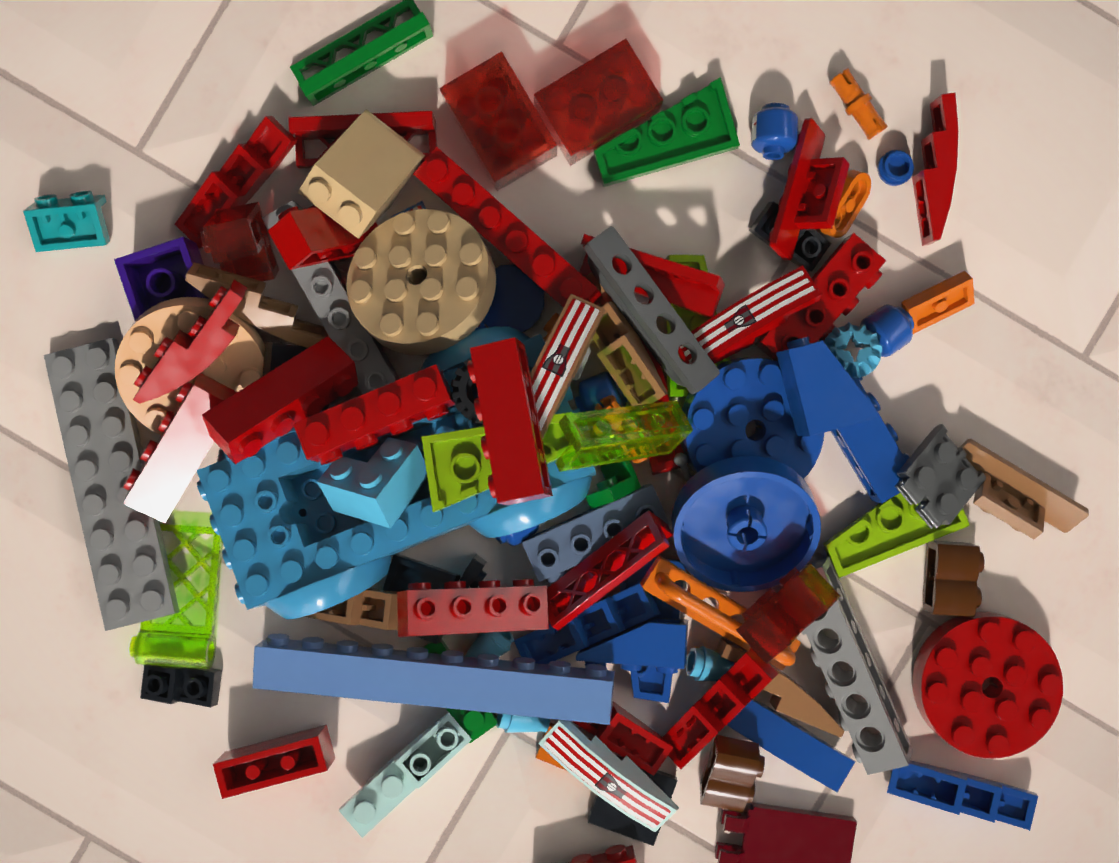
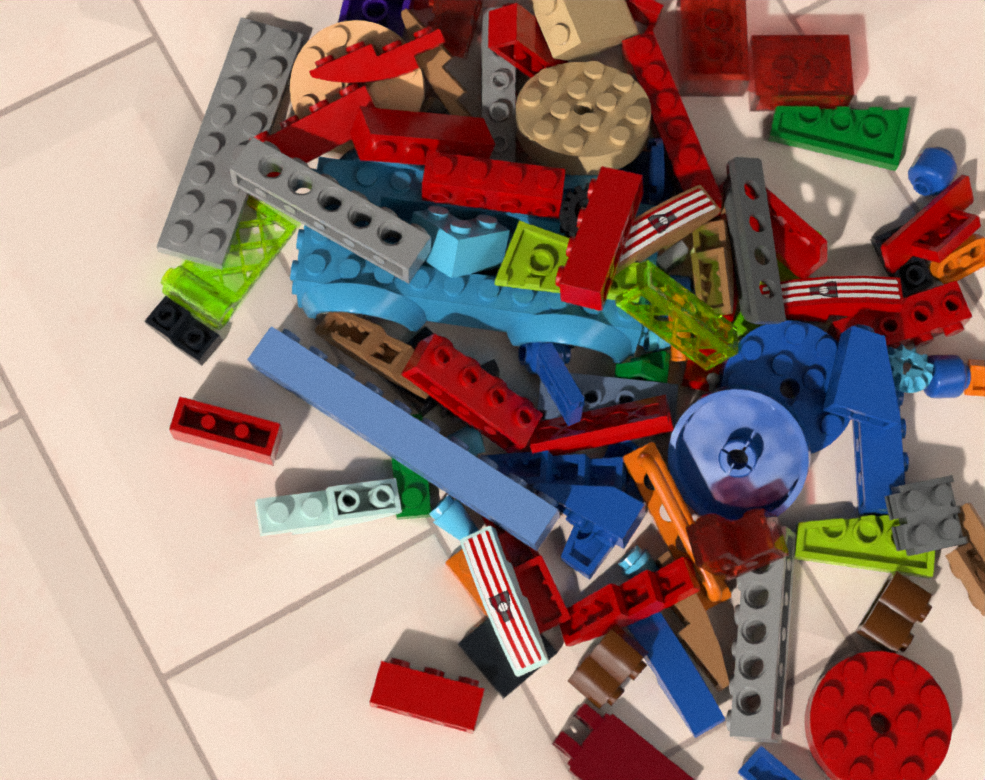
camera: 20 degrees right, 15 degrees down
(140, 532) = (398, 259): none -> light grey brick
(518, 292) = (655, 171): none -> blue tile
(537, 548) = (560, 384): none -> blue plate

